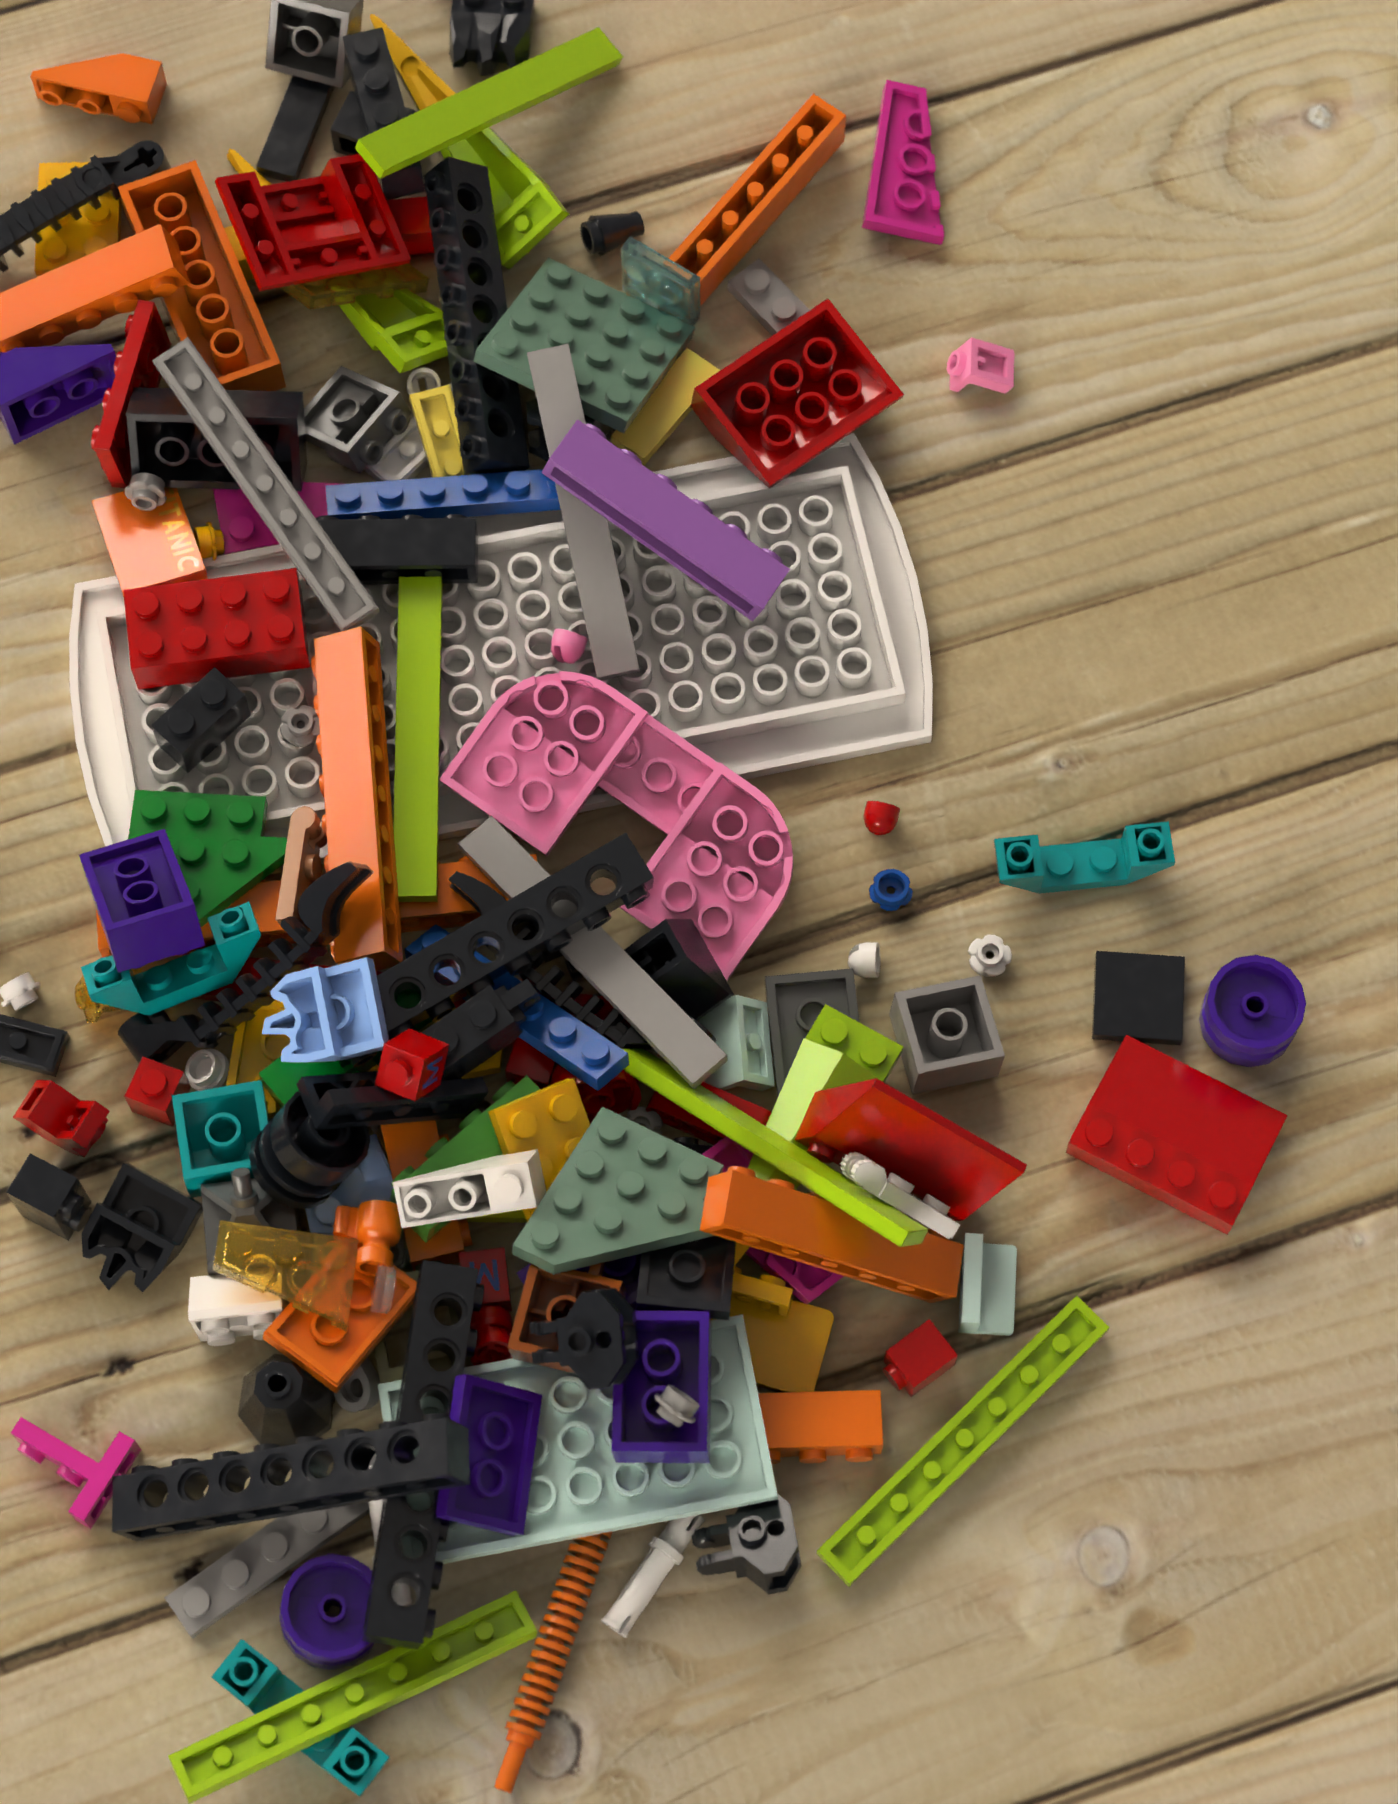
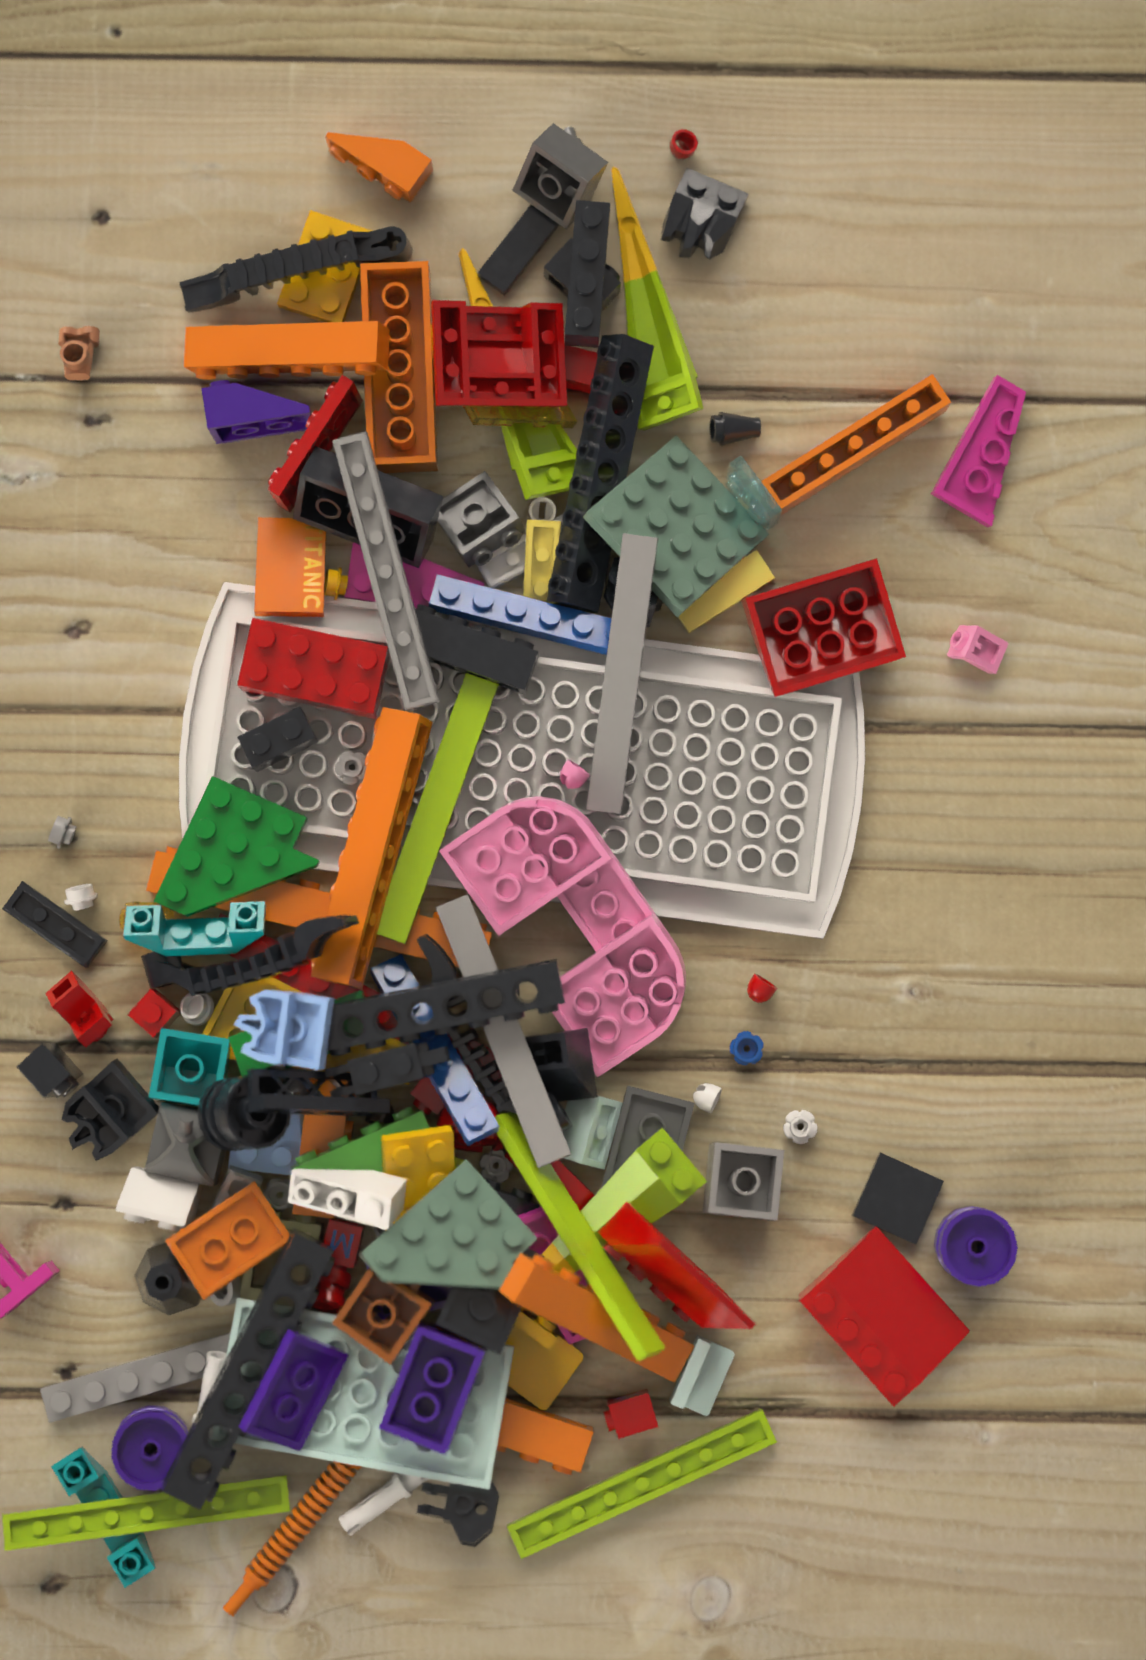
camera: 20 degrees right, 15 degrees up
(142, 900) = (184, 875): dark purple slope -> none
(146, 491) = (299, 529): light grey plate -> none
(292, 1264) = (201, 1198): clear yellow wing -> none
(301, 860) = (312, 887): plate -> none
(377, 1228) = (272, 1189): orange piece -> none
(383, 1289) = (260, 1240): clear tile -> none
(411, 1064) = (335, 1087): red brick -> none
(440, 1464) = (256, 1388): black brick -> none
(488, 103) = (673, 294): lime tile -> none
(593, 1338) = (389, 1349): black hinge -> none
(665, 519) = (680, 707): medium lavender brick -> none
(676, 1406) = (434, 1417): light grey plate -> none
(766, 297) = (836, 530): light grey plate -> none
(897, 1193) = (656, 1307): white hinge -> none
(1084, 865) = (899, 1080): teal slope -> none

